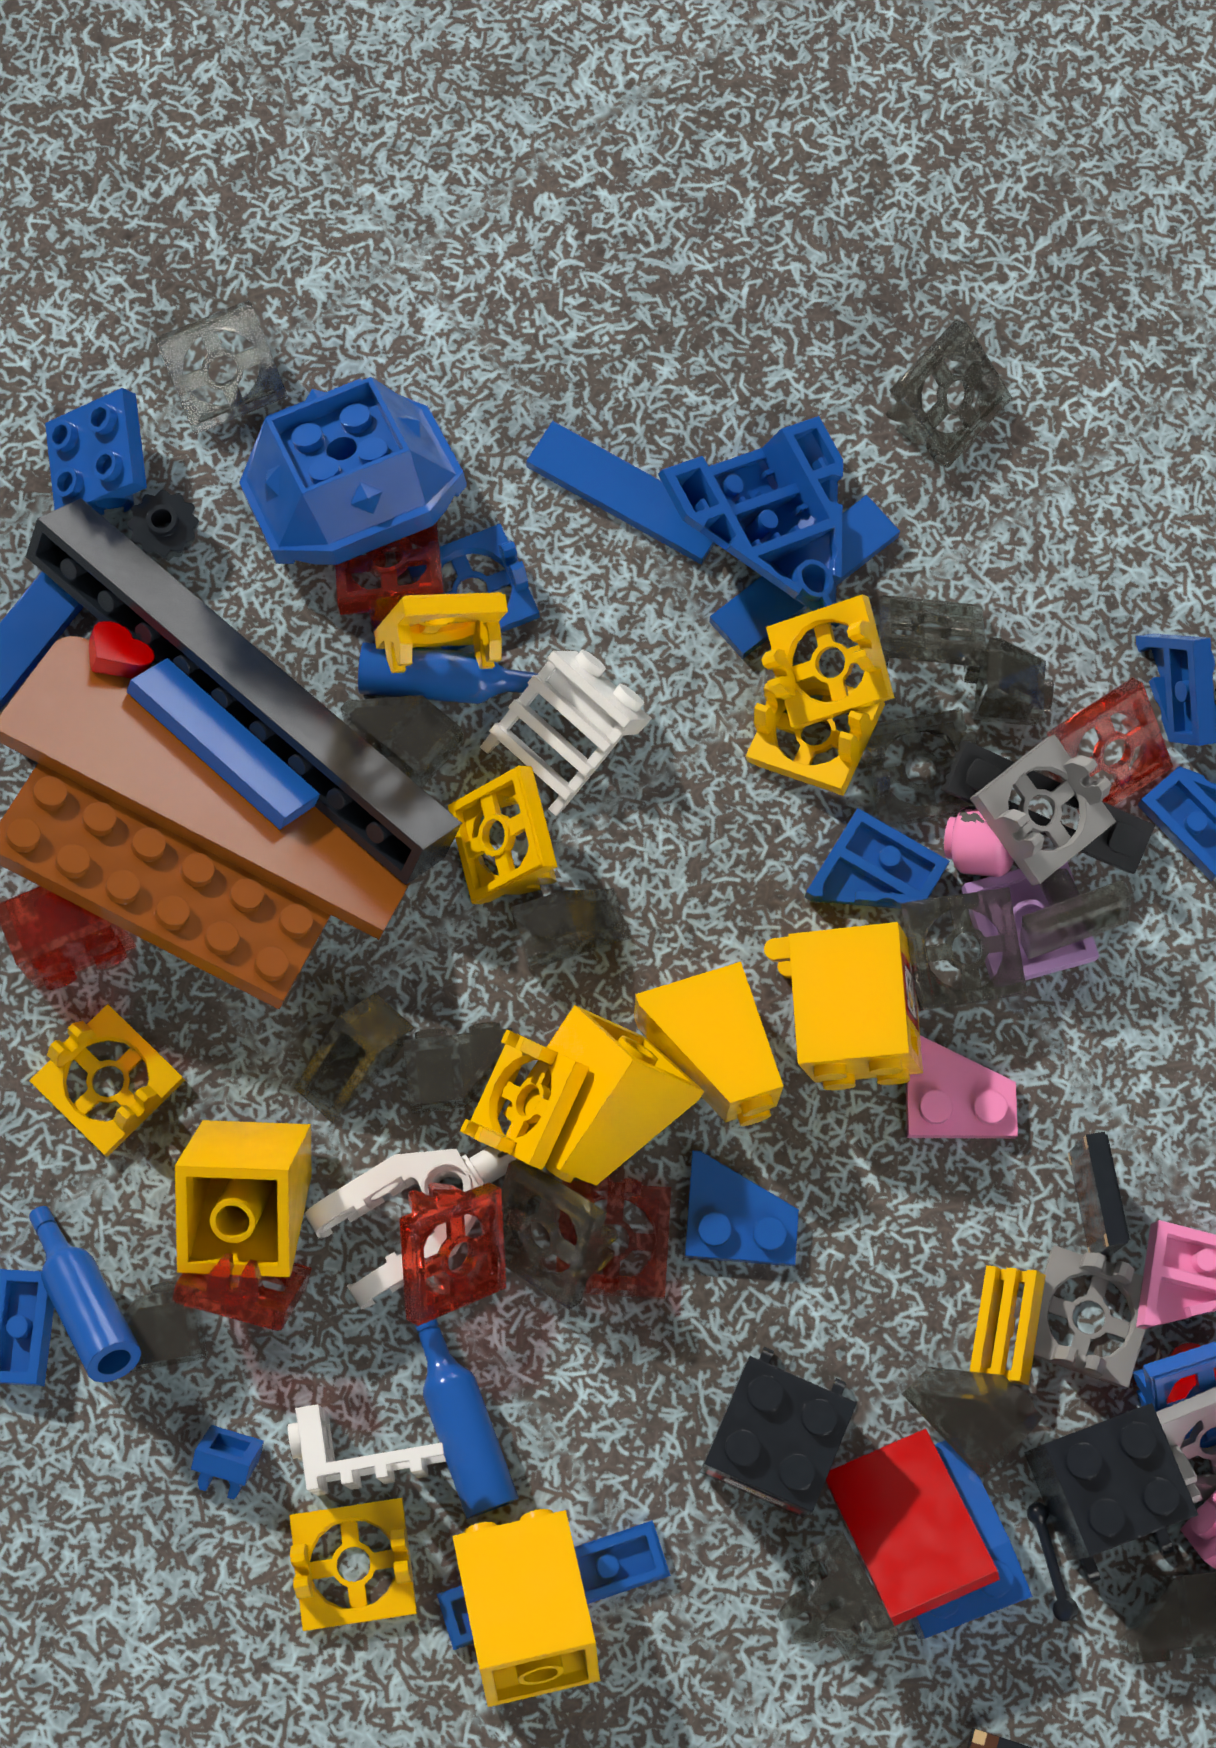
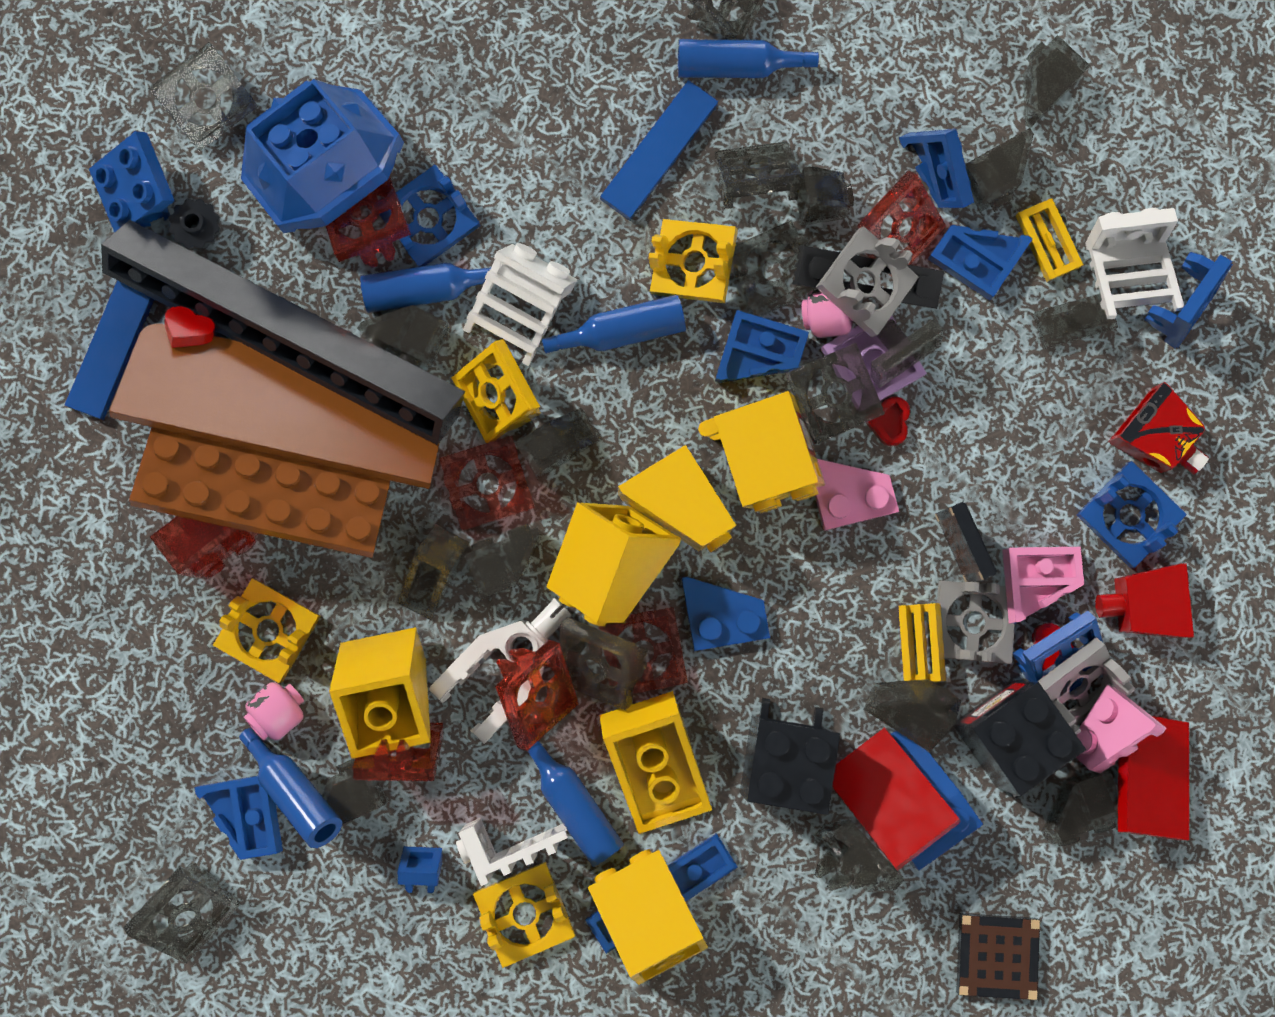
camera: 20 degrees left, 10 degrees up
(87, 1189) = (274, 711): none -> bright pink head
(223, 743) = (280, 376): blue tile -> none
(421, 920) = (455, 463): none -> clear red piece
(432, 623) = (414, 249): yellow piece -> none
(552, 1106) = (580, 578): yellow piece -> none
(591, 1397) = (655, 762): none -> yellow slope
(615, 488) = (518, 119): blue tile -> none
(698, 793) = (624, 326): none -> blue piece
(772, 509) = (626, 109): blue wedge -> none
(867, 654) = (719, 200): yellow piece -> none
(939, 482) = (737, 59): none -> blue piece
(1034, 1014) = (891, 426): none -> red tile
(1064, 1607) = (1002, 819): black hinge -> none

